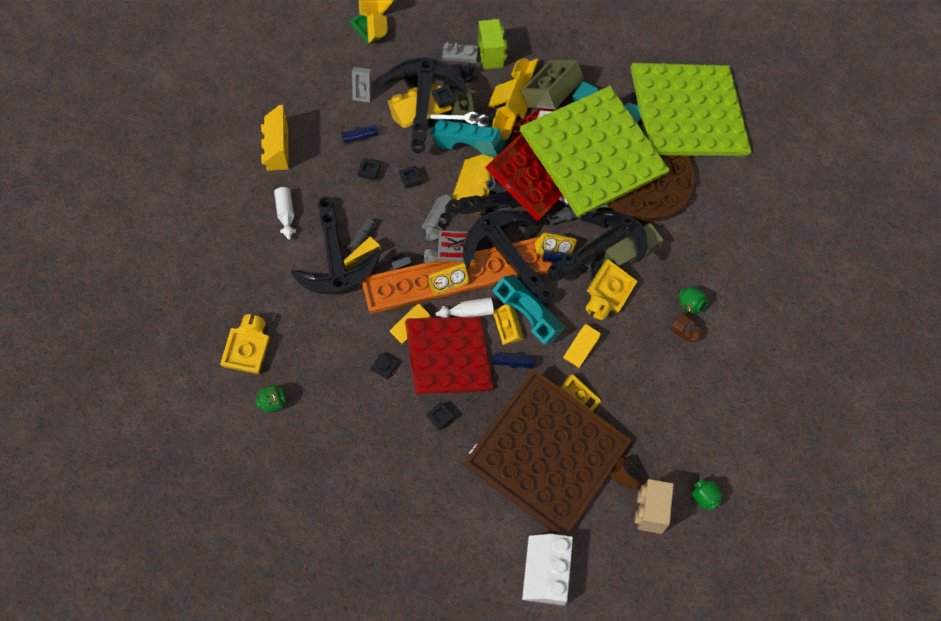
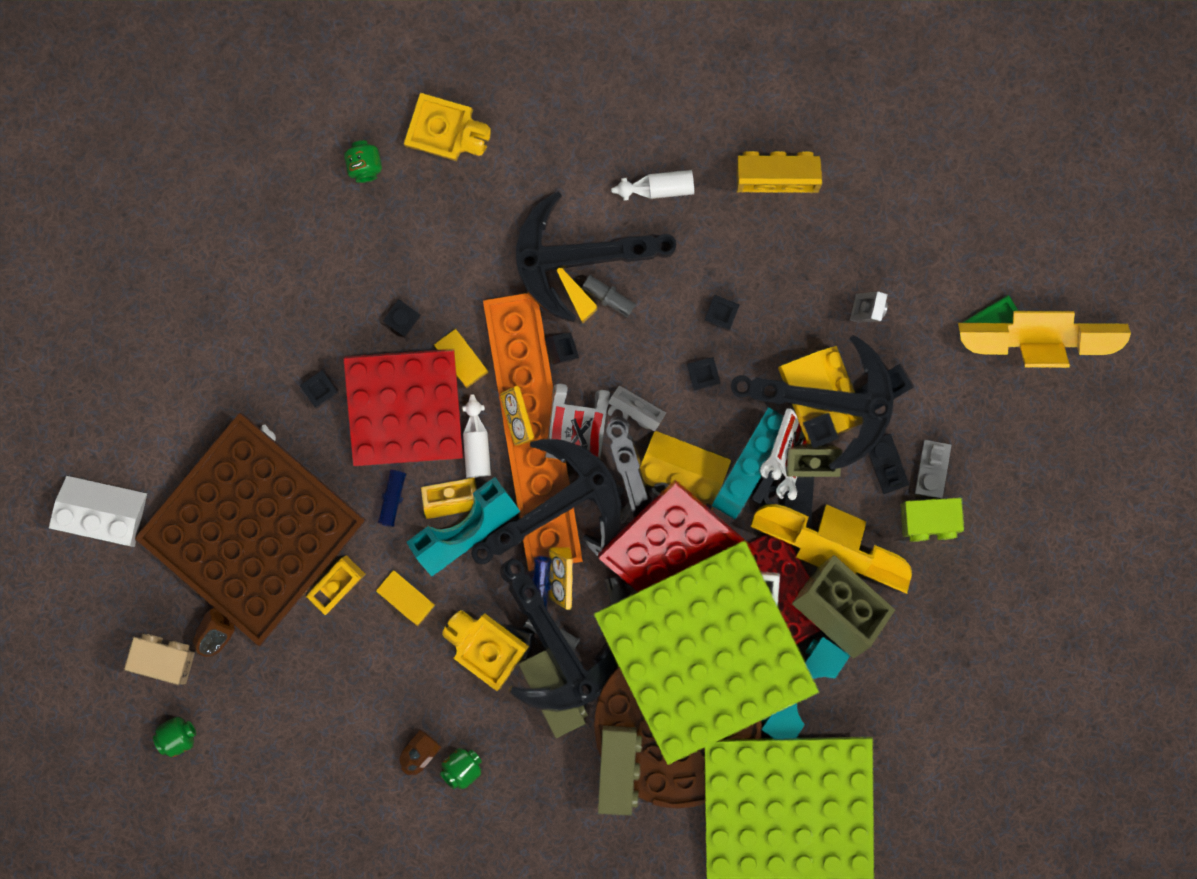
camera: 100 degrees right, 20 degrees up
(360, 133) = (787, 301): clear blue pin -> none
(678, 199) = (618, 770): none -> olive brick

